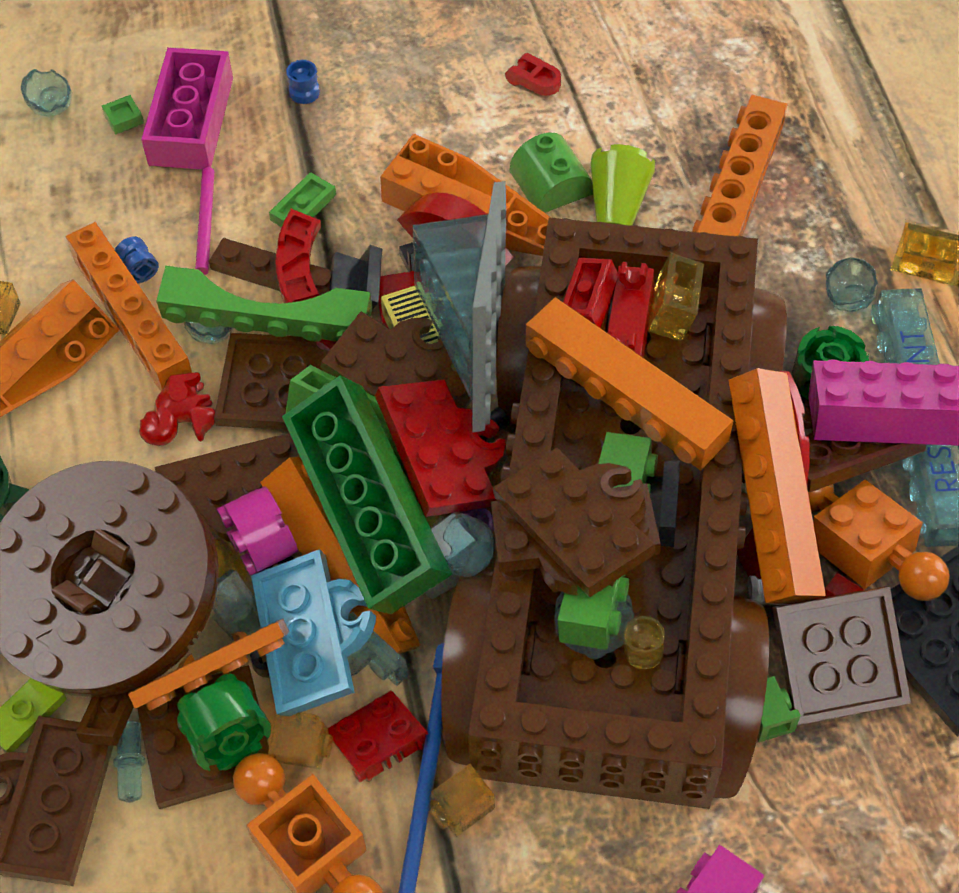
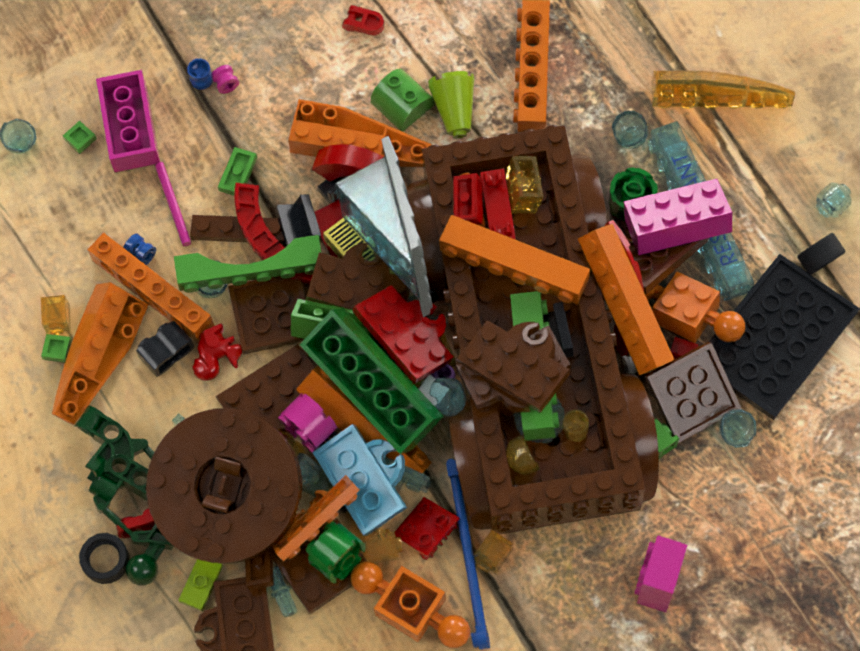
camera: 15 degrees left, 10 degrees up
(114, 387) = (164, 348): none -> black brick
(331, 95) = (225, 79): none -> dark pink wheel
(544, 662) = (520, 457): none -> clear yellow hair
(897, 729) = (737, 428): none -> clear light blue hair

